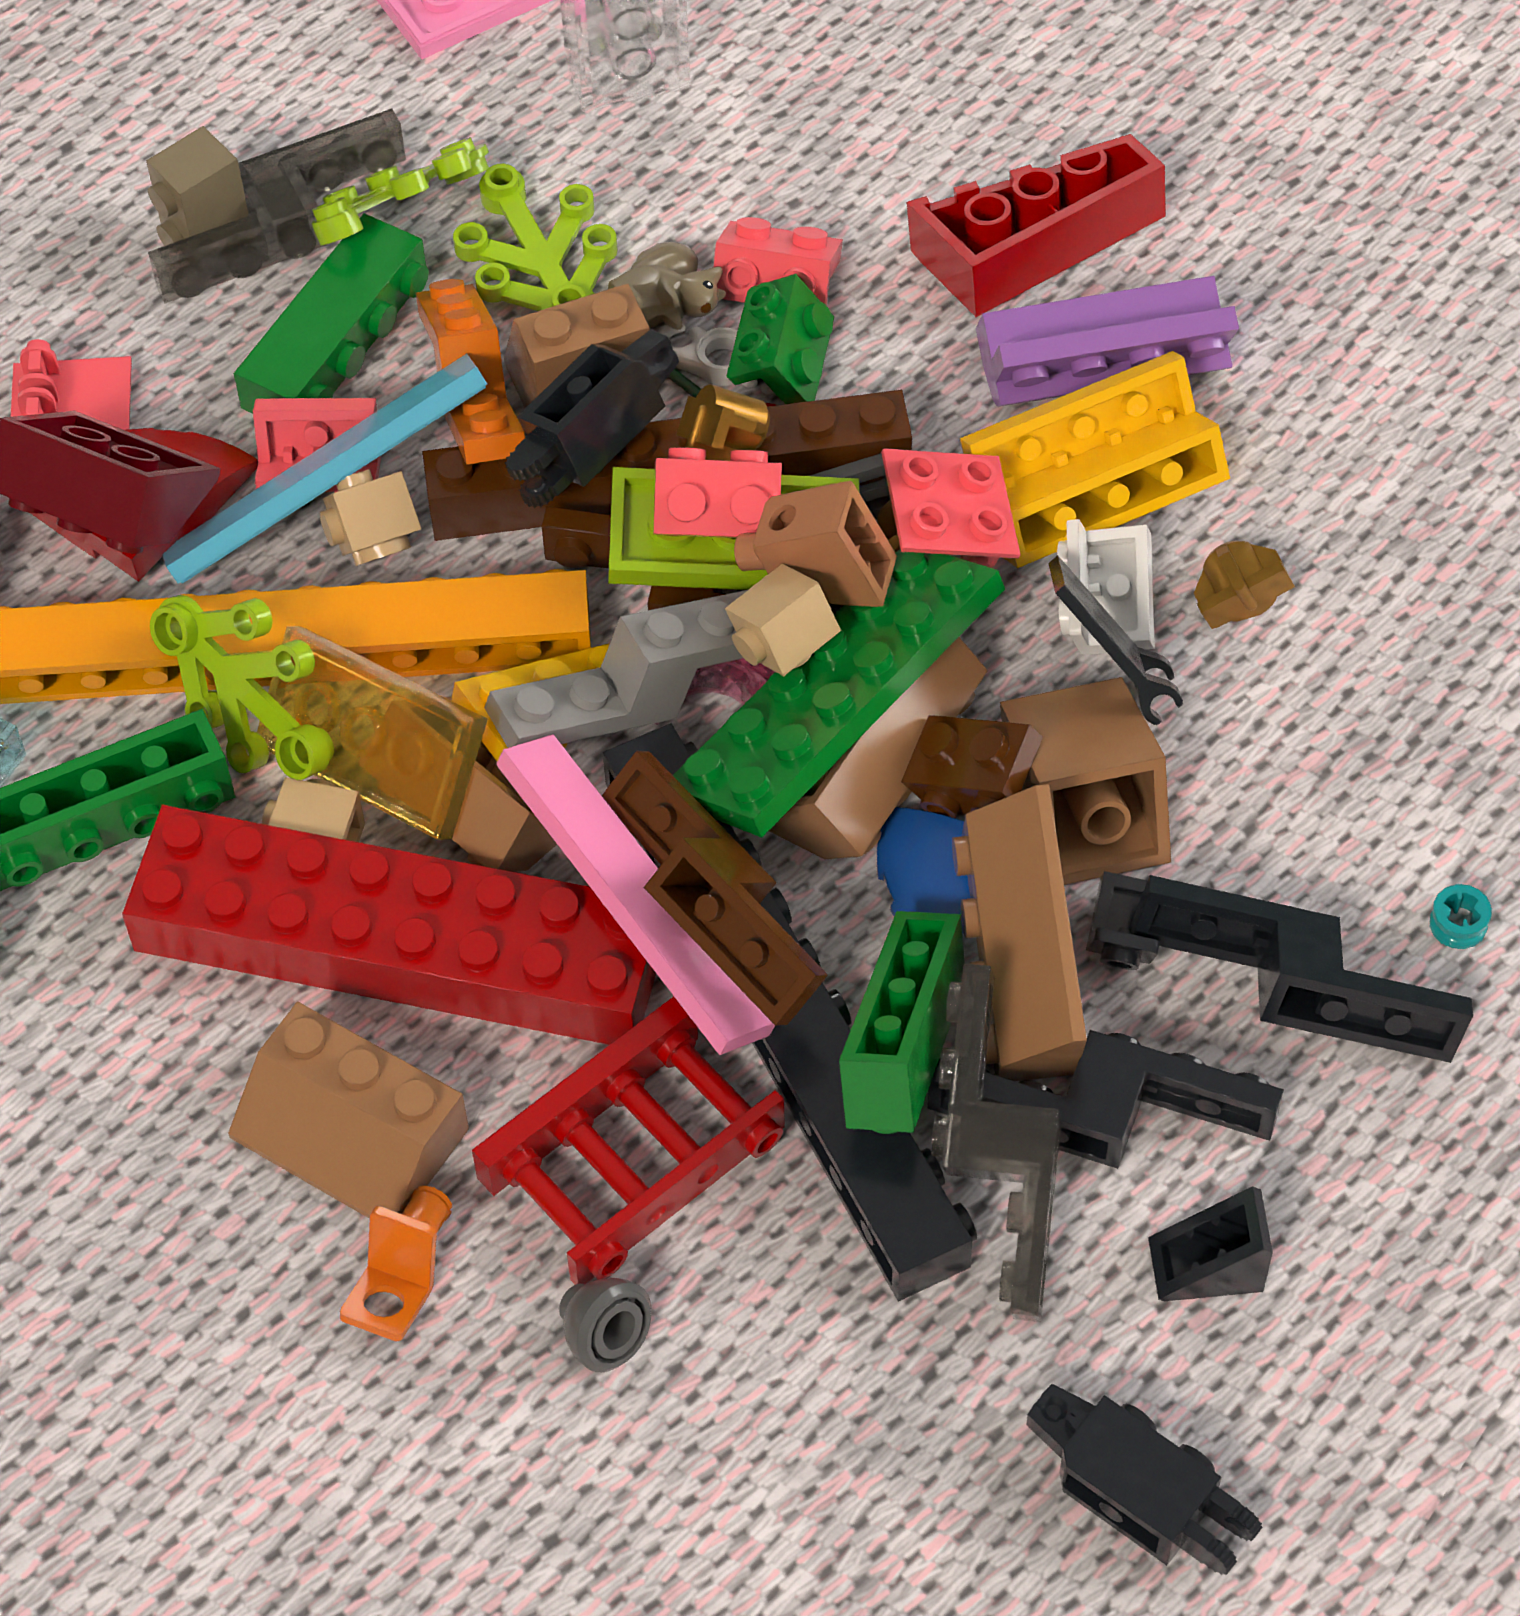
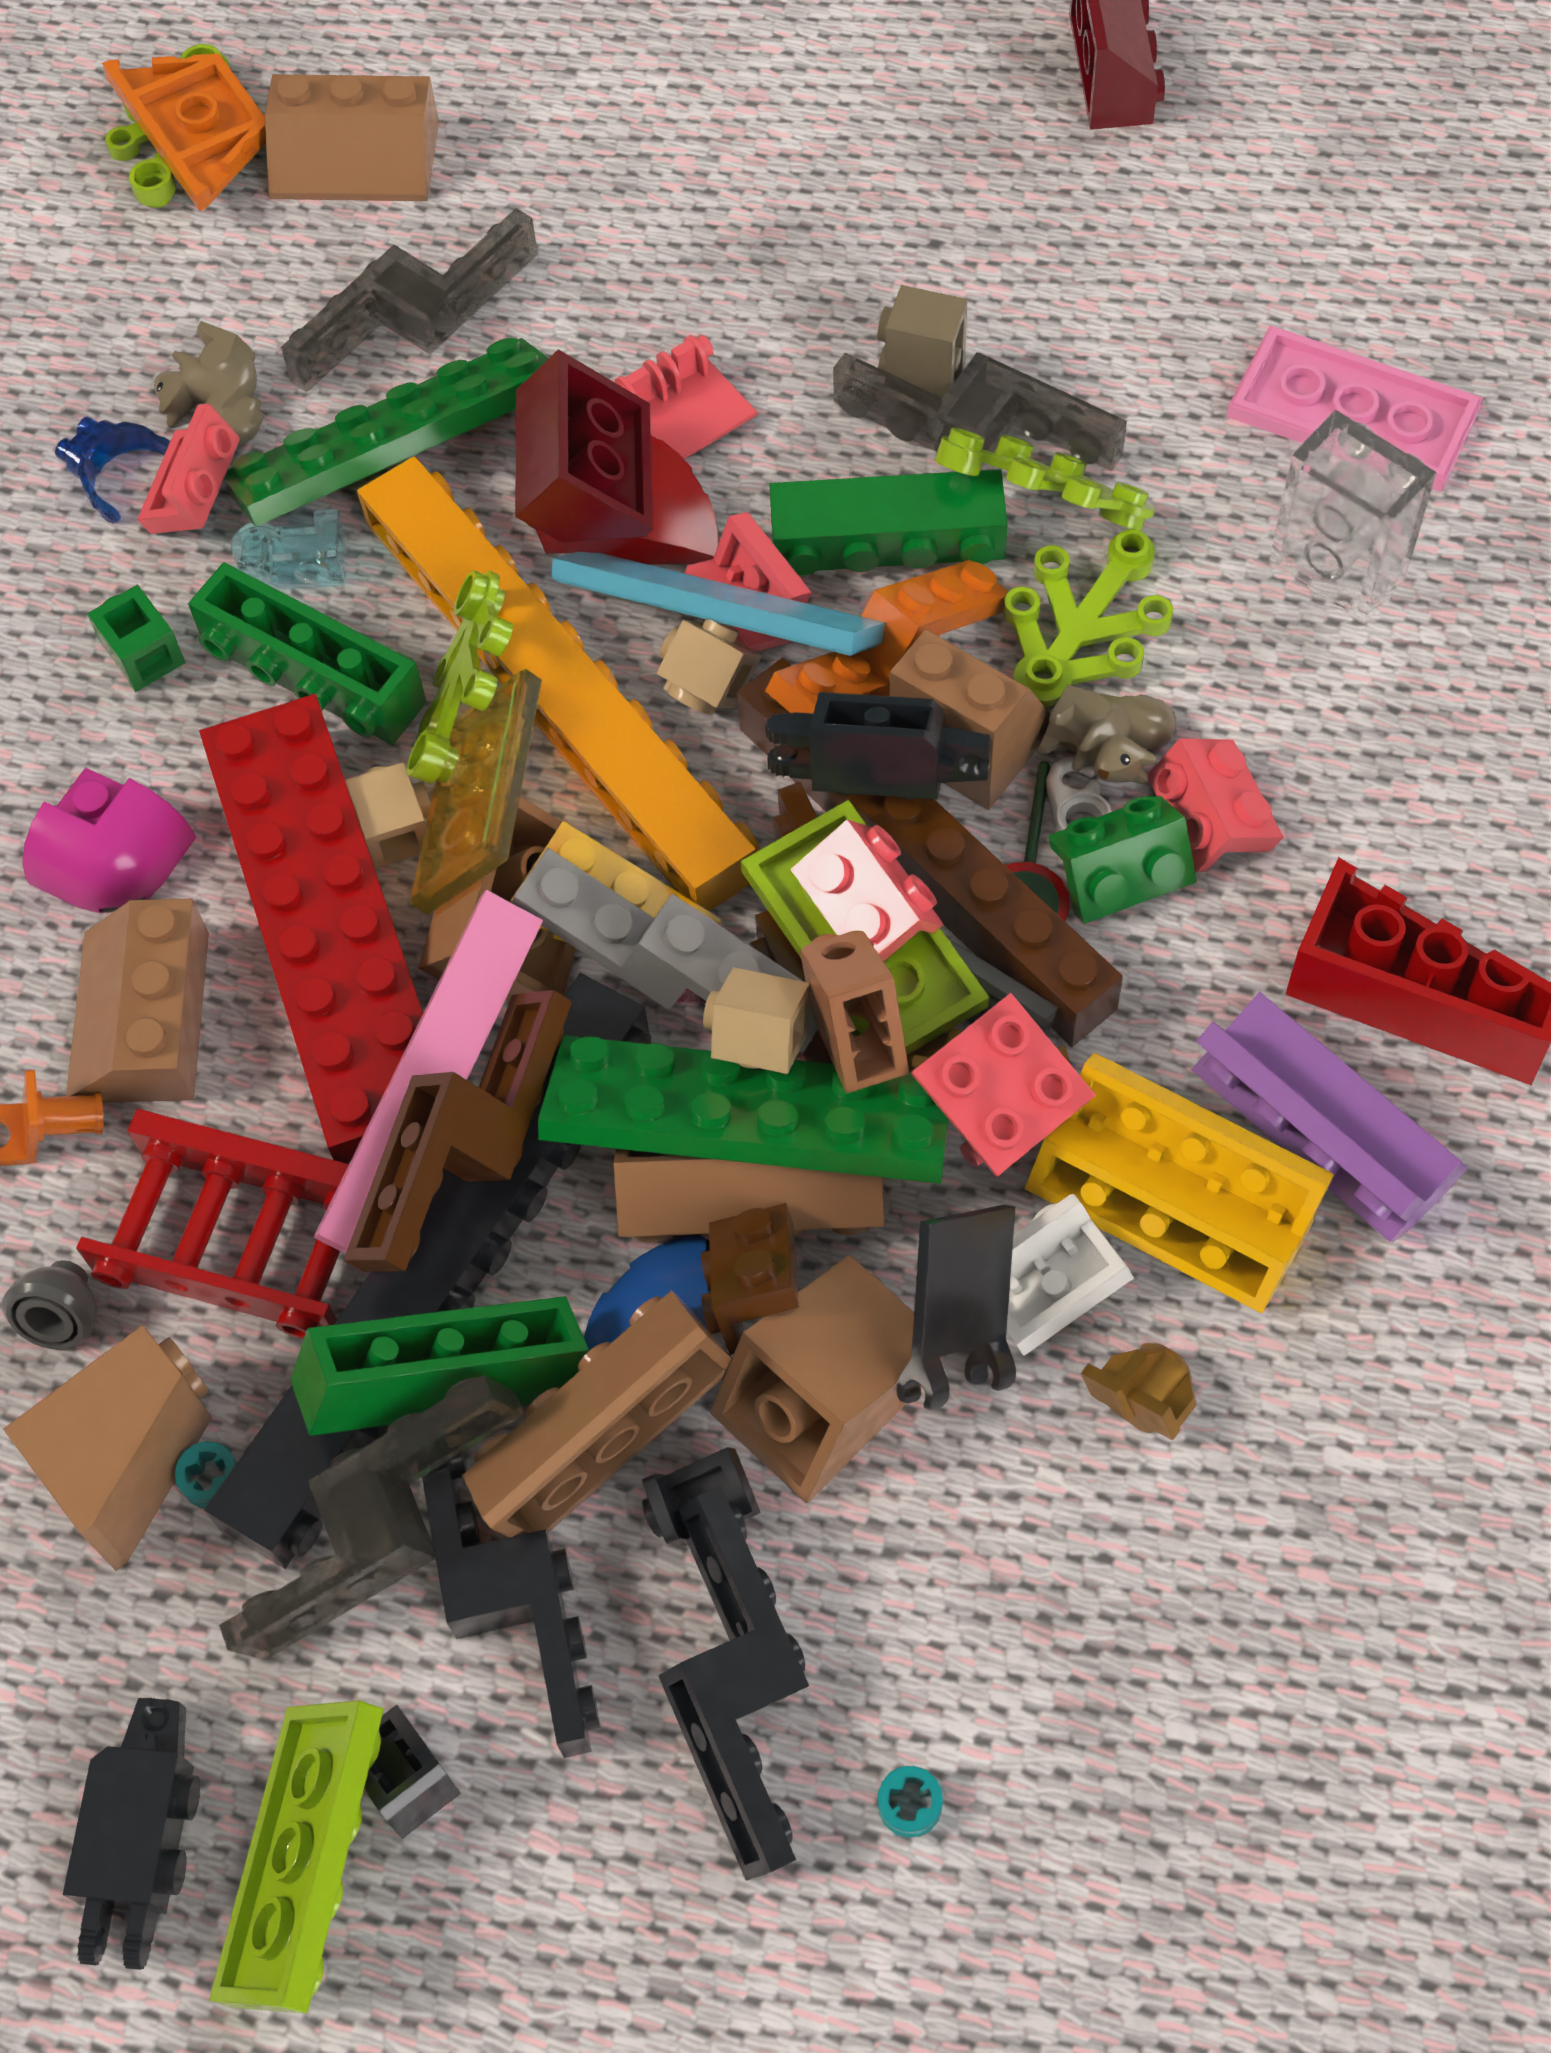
camera: 60 degrees right, 5 degrees up
(155, 1065) = (104, 843): none -> dark pink brick
(723, 422) = (947, 856): pearl gold piece -> none
(794, 1317) = (114, 1439): none -> medium nougat slope
(842, 1258) = (194, 1463): none -> teal bush
(1248, 1350) = (298, 1857): none -> lime plate

